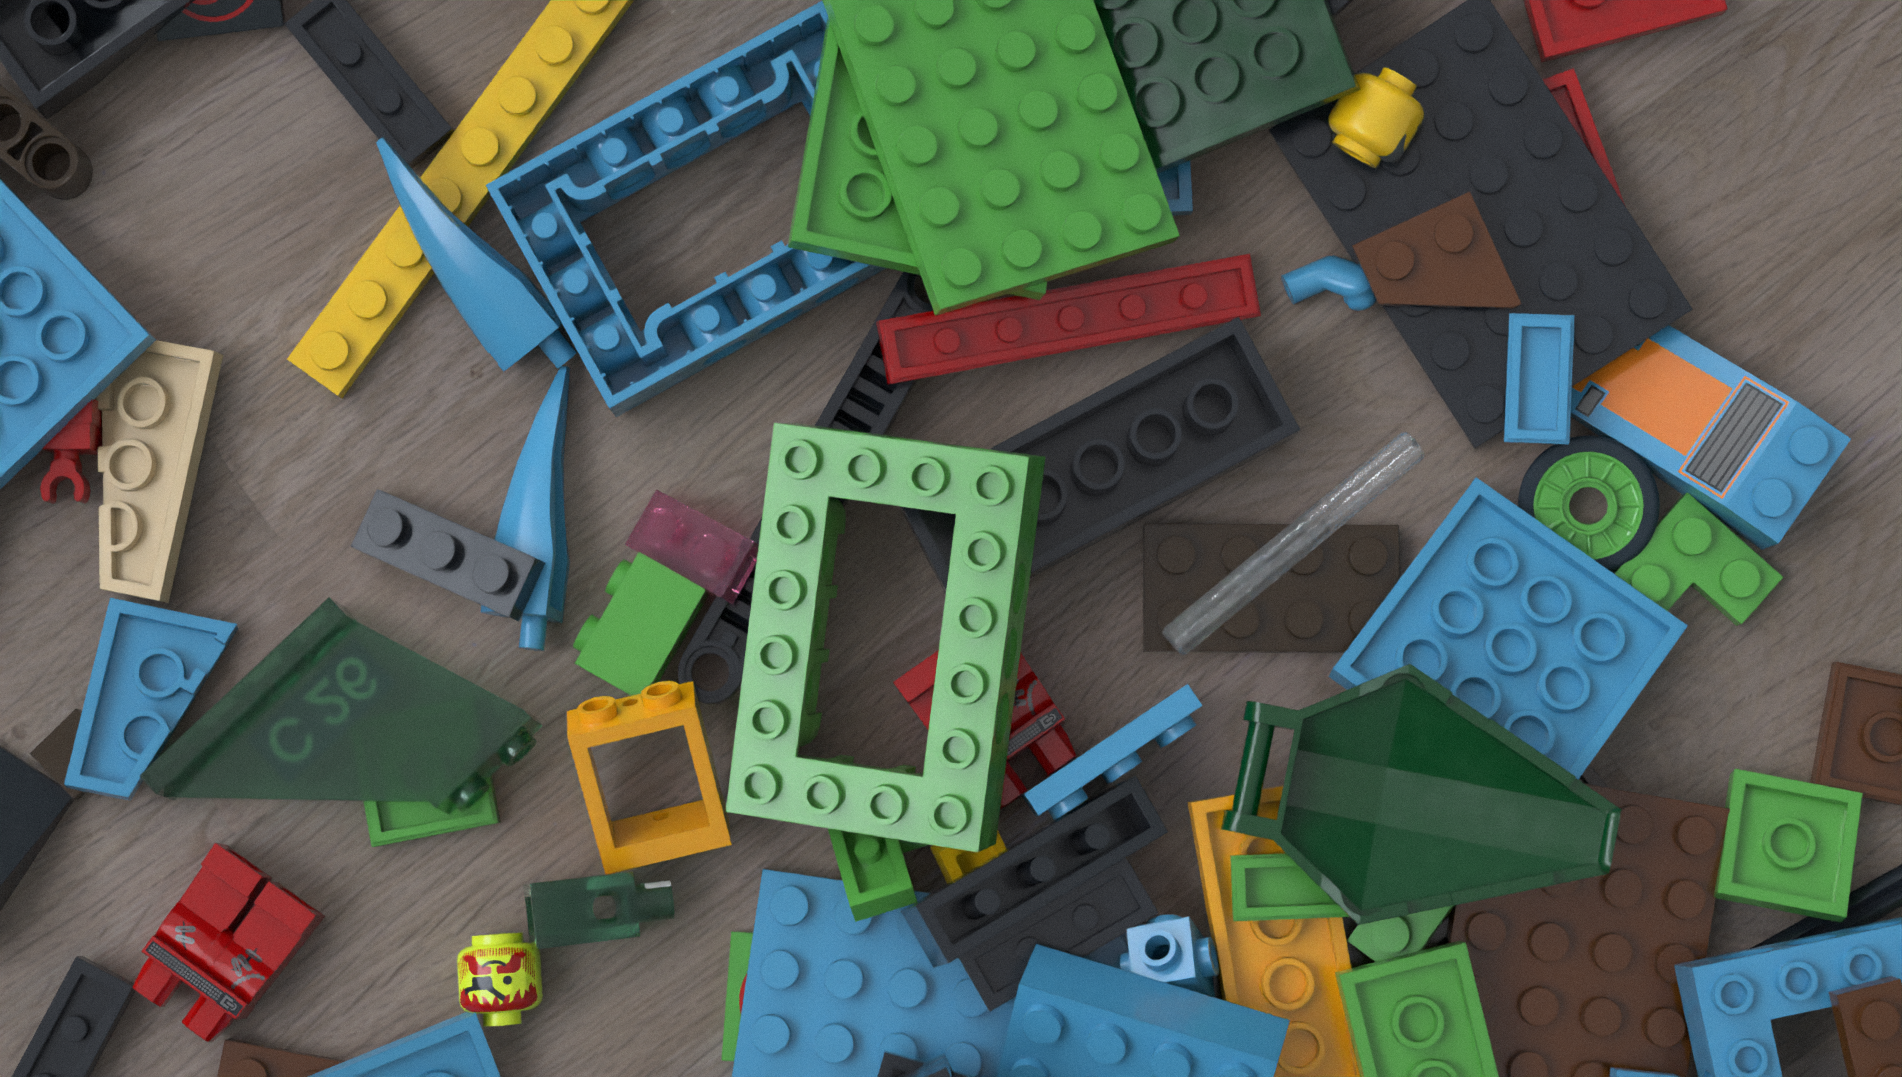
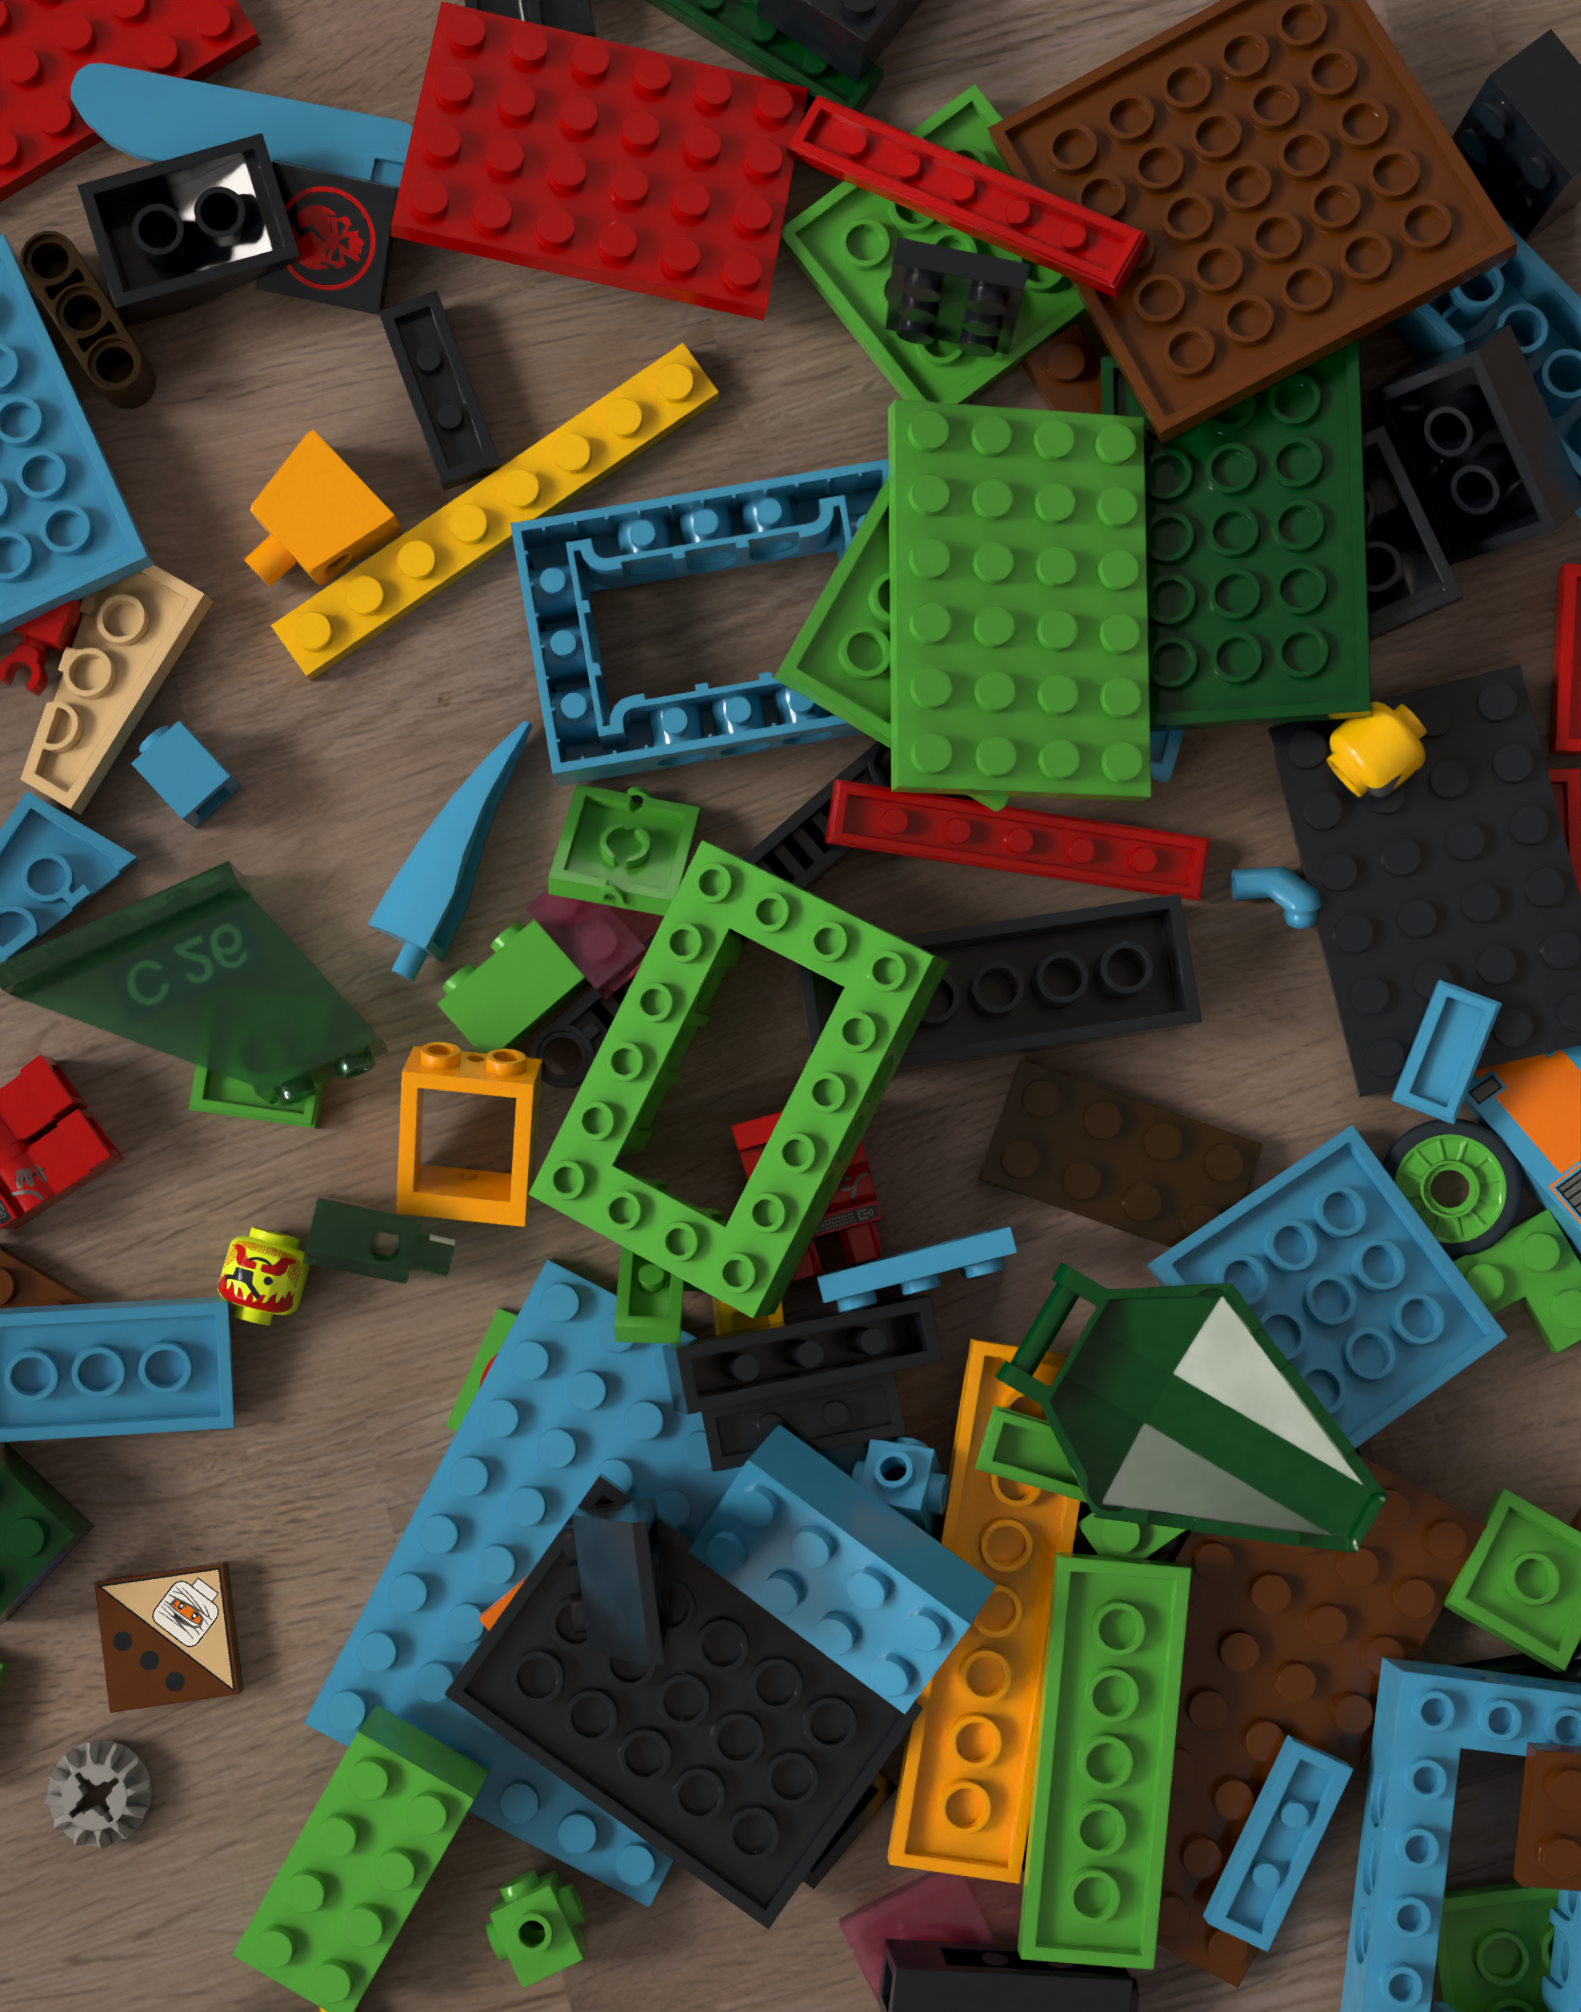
camera: 20 degrees right, 0 degrees up
(255, 528) = (185, 773): none -> dark azure brick
(295, 240) = (317, 517): none -> light orange torso
(448, 555) = (355, 861): plate -> none
(487, 289) = (479, 624): dark azure piece -> none
(700, 456) = (623, 849): none -> bright green plate
(1293, 543) = (1157, 1127): clear axle -> none
(1438, 261) = (1389, 906): reddish brown wing -> none

